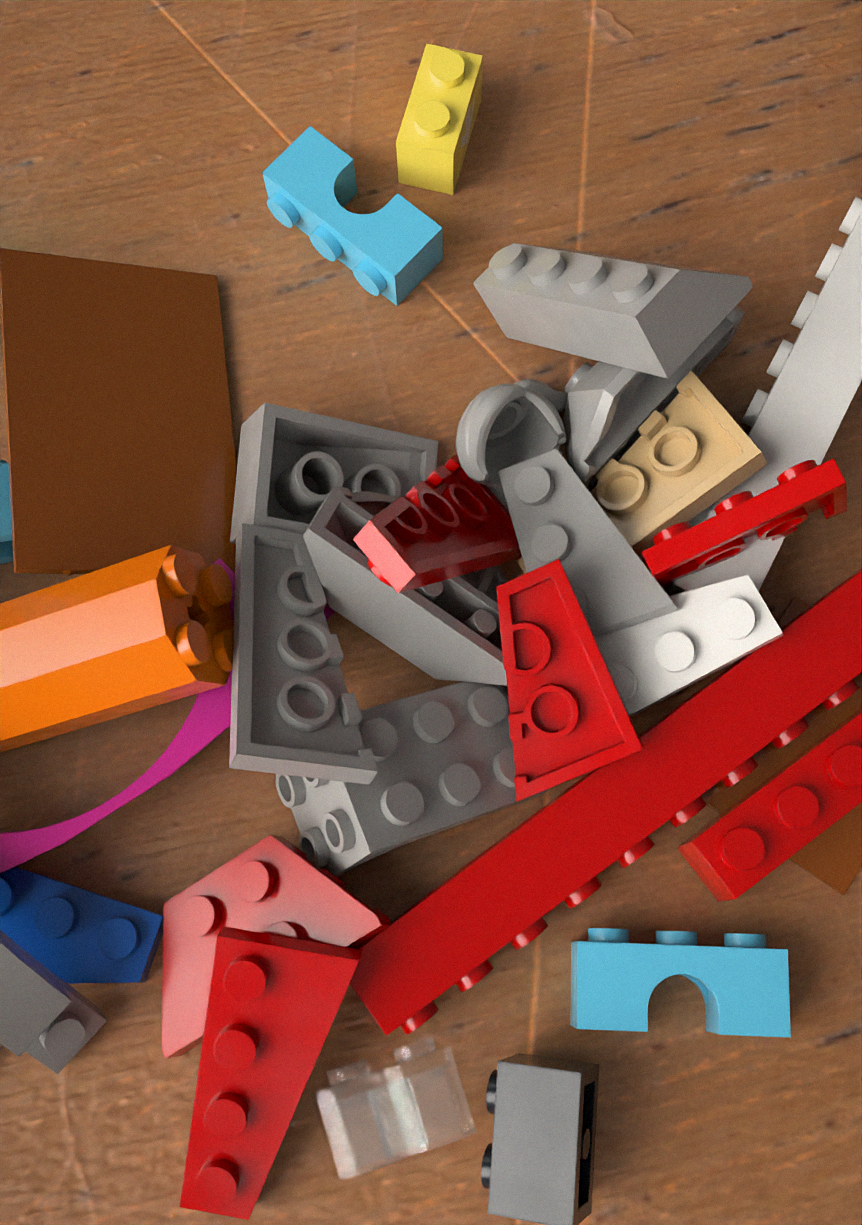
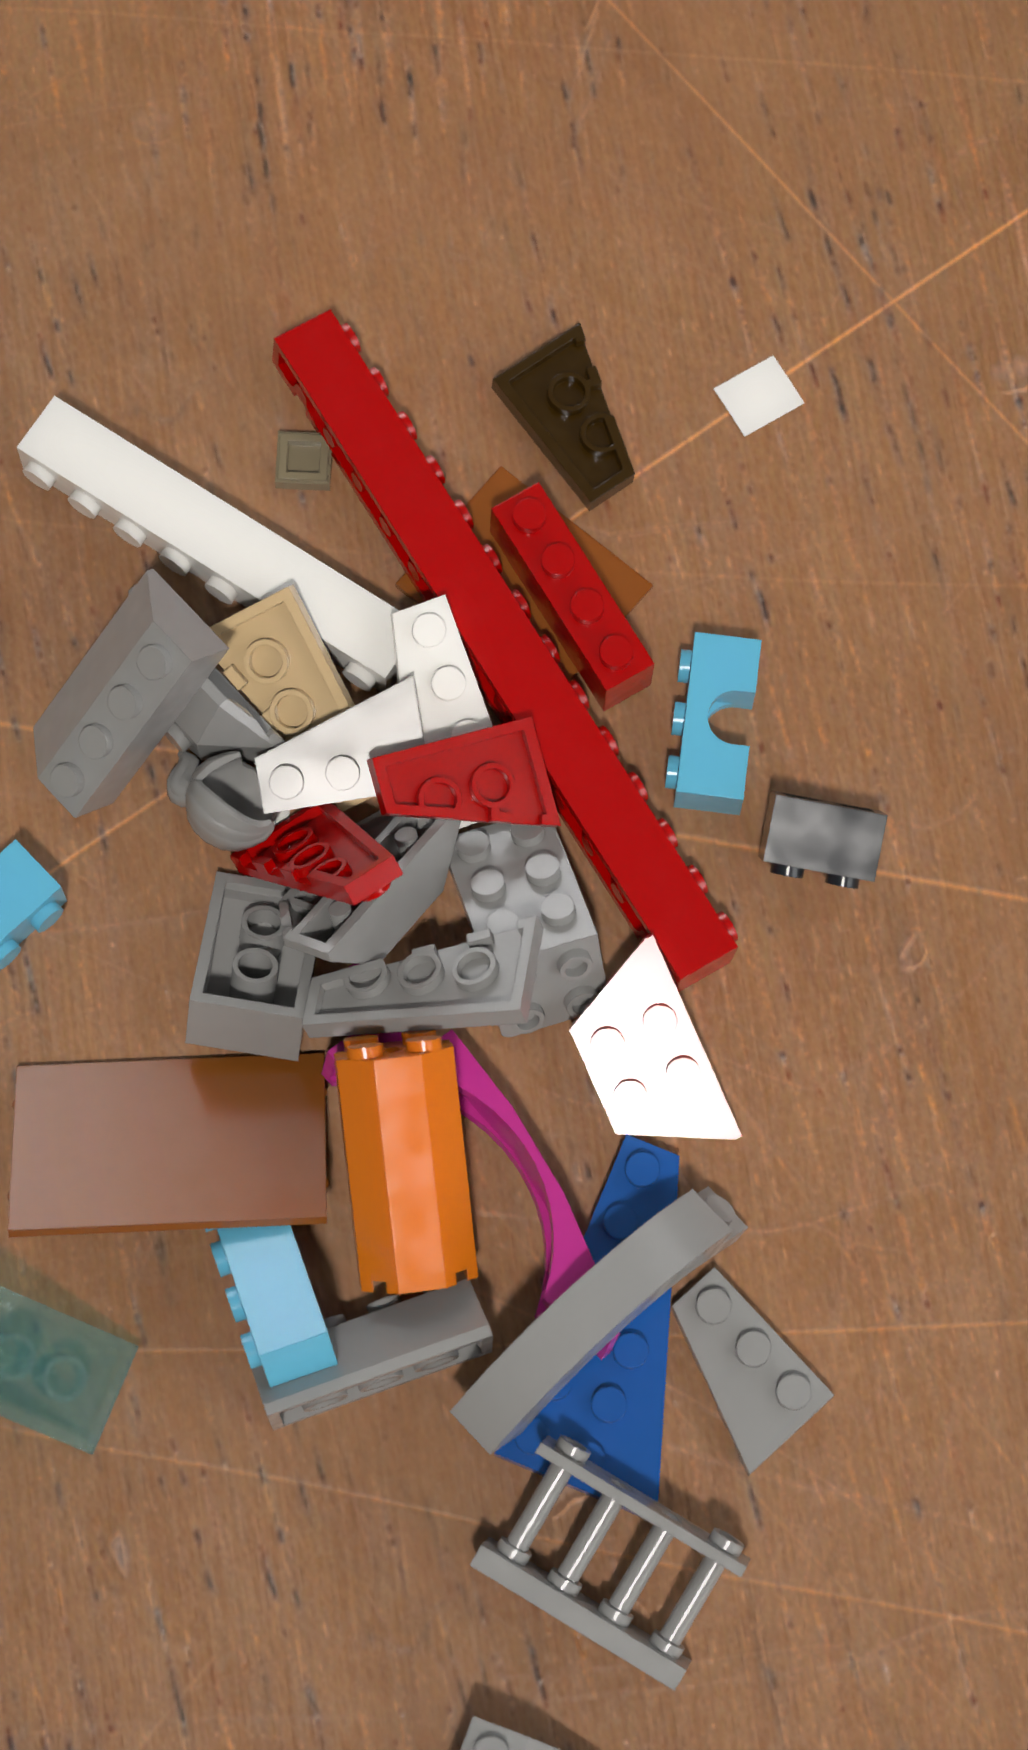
camera: 90 degrees left, 0 degrees up
(259, 1046) = (741, 1046): red wing -> none
(394, 1108) = (793, 952): clear brick -> none
(770, 515) = (349, 609): red wing -> none

